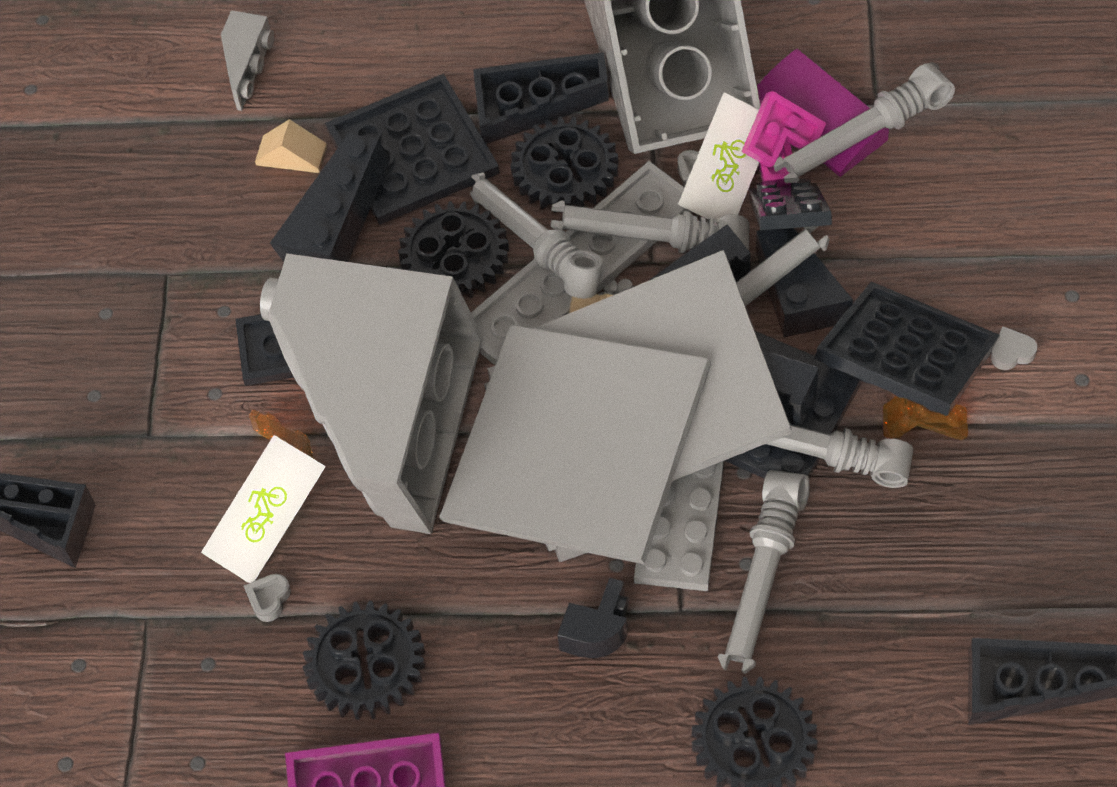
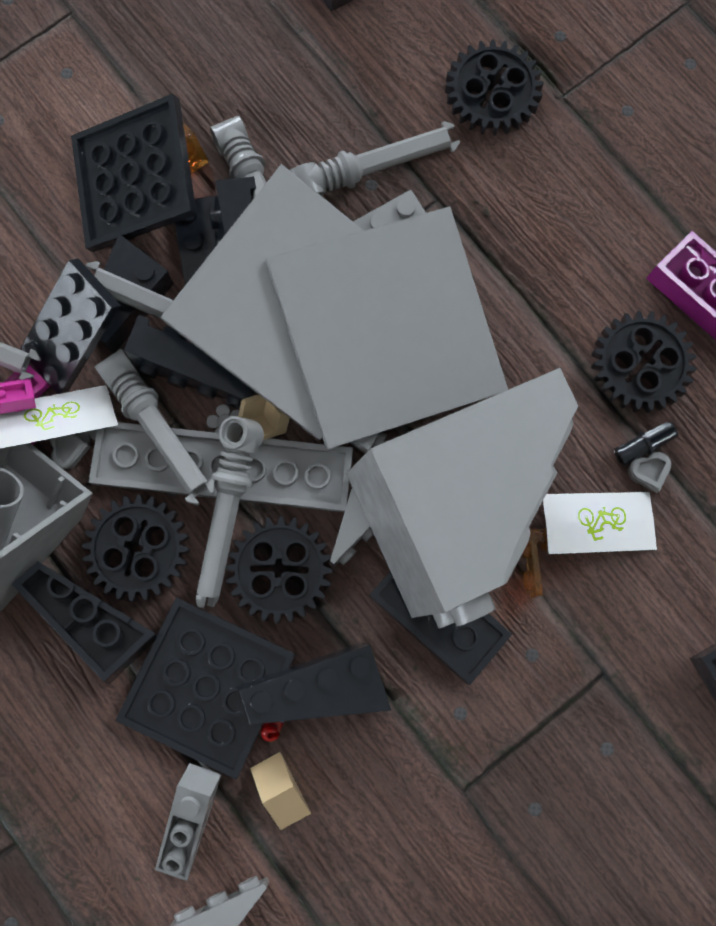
camera: 135 degrees left, 20 degrees up
(293, 605) = (645, 443): none -> black axle
(329, 79) = (187, 821): none -> light grey slope
(596, 632) = (500, 229): black brick -> none
(1013, 349) = (72, 122): light grey tile -> none

